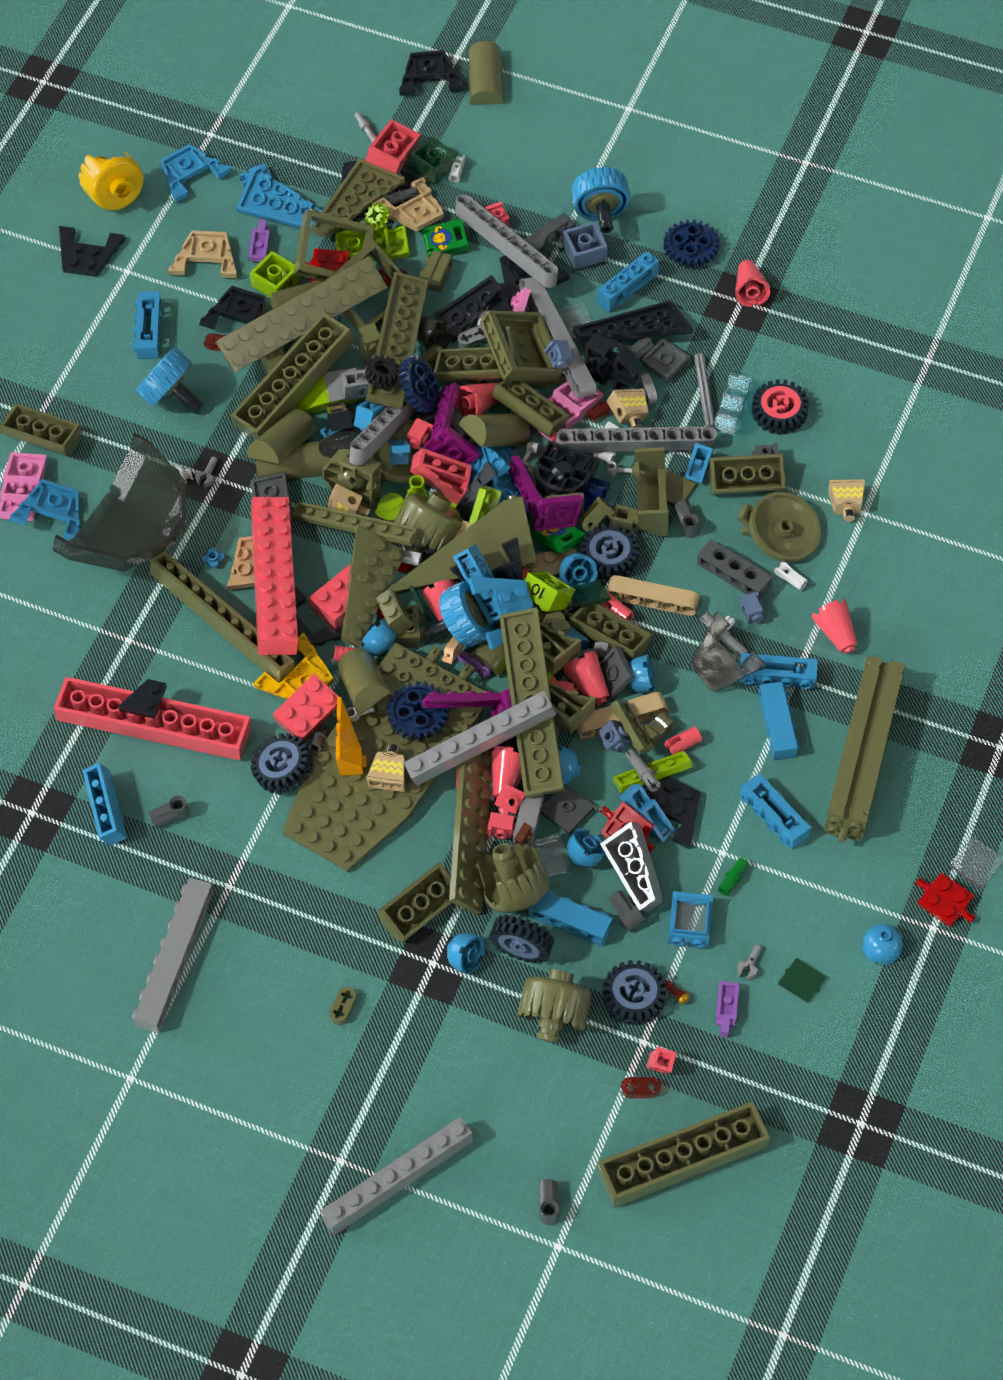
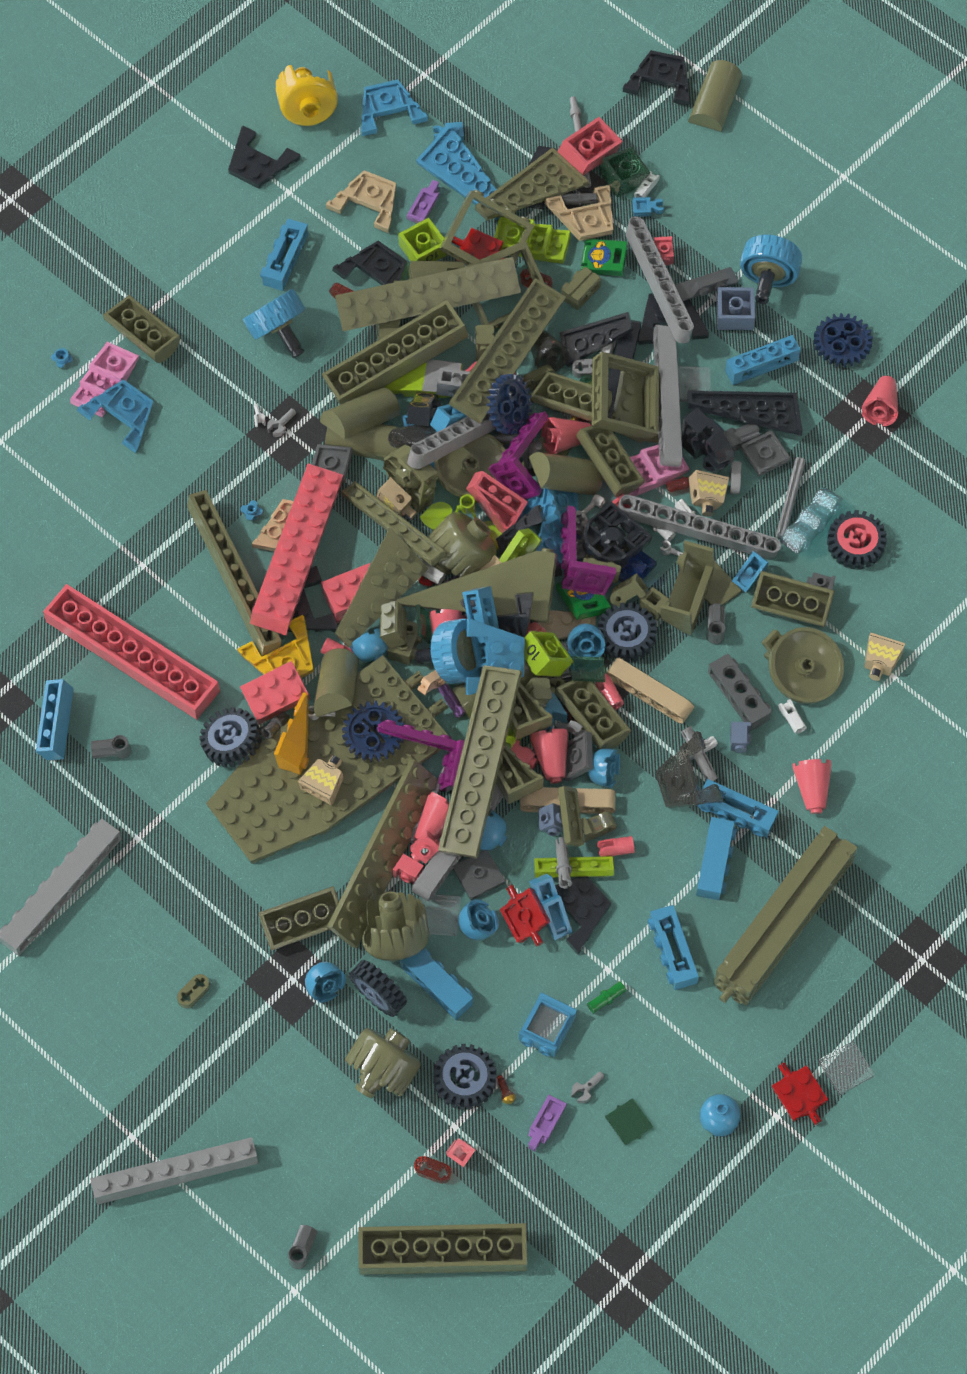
camera: 20 degrees right, 5 degrees up
(137, 515) = (191, 452): clear smoke windscreen -> none
(145, 699) = (128, 632): black wing -> none
(381, 218) = (548, 217): lime gear -> none
(385, 365) = (472, 389): black tyre -> none
(398, 451) = (463, 463): dark azure slope -> none
(419, 433) = (489, 453): coral brick -> none
(463, 185) = (644, 207): none -> dark azure plate
(479, 738) = (417, 780): light grey brick -> none
(520, 300) = (645, 347): bright pink wing -> none
(524, 834) = (421, 888): copper plate -> none
(559, 353) = (657, 416): sand blue brick -> none
(628, 914) = (491, 997): dark grey piece -> none
(633, 864) = (514, 953): light grey wedge -> none

